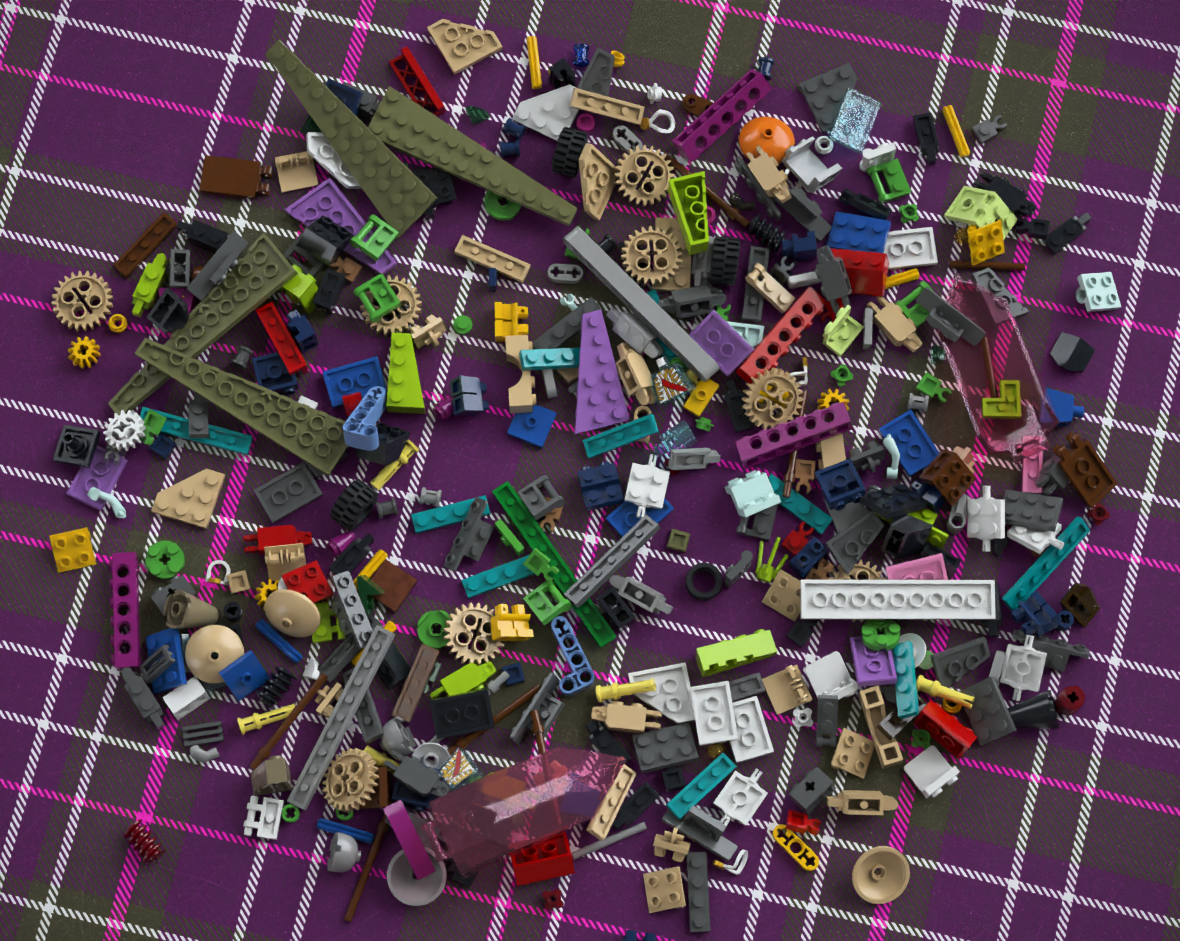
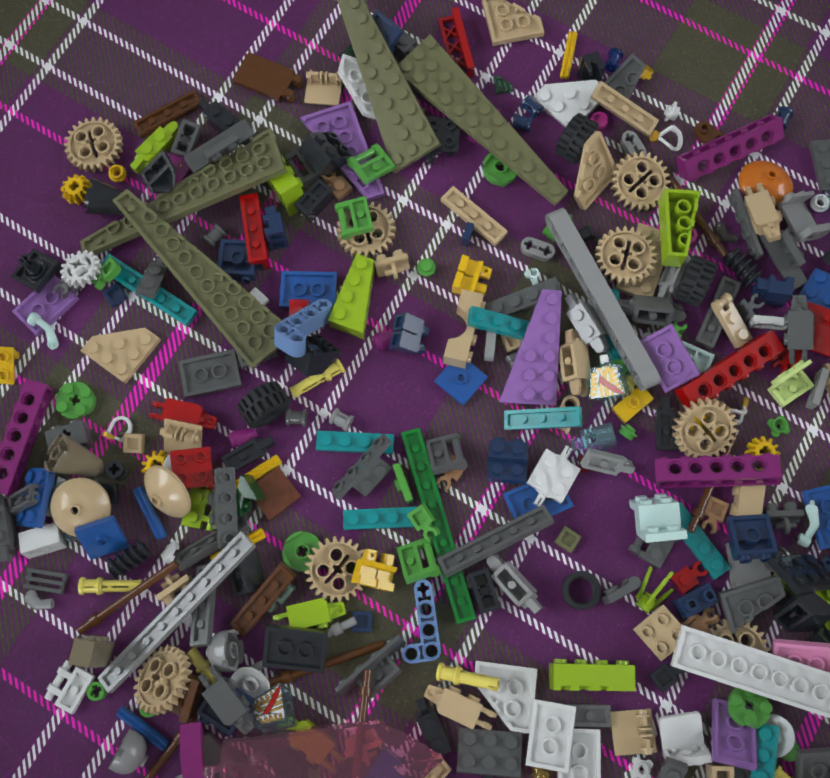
camera: 25 degrees right, 0 degrees up
(118, 353) = (100, 197): none -> black cone

